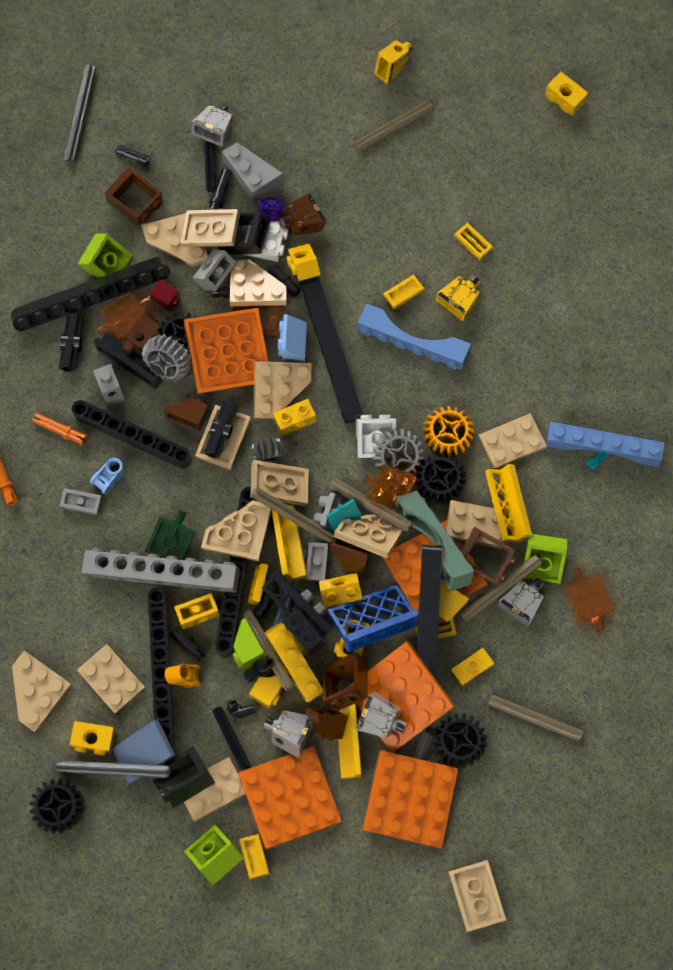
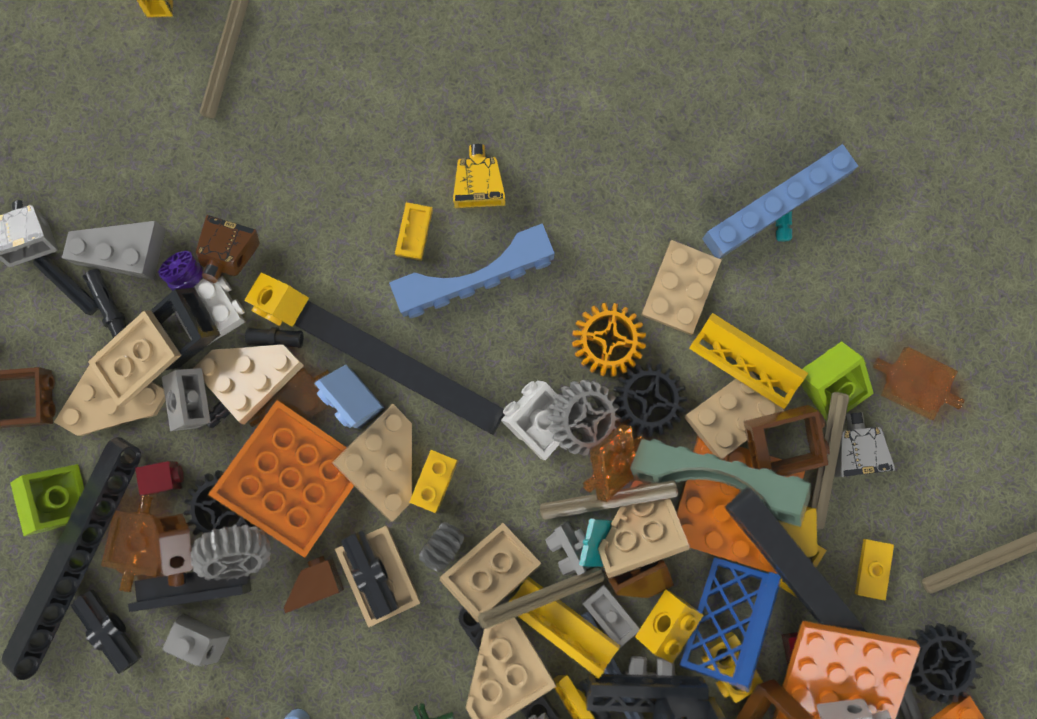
camera: 45 degrees left, 10 degrees up
(125, 427) = (261, 674): black beam -> none
(464, 242) = (432, 117): yellow tile -> none

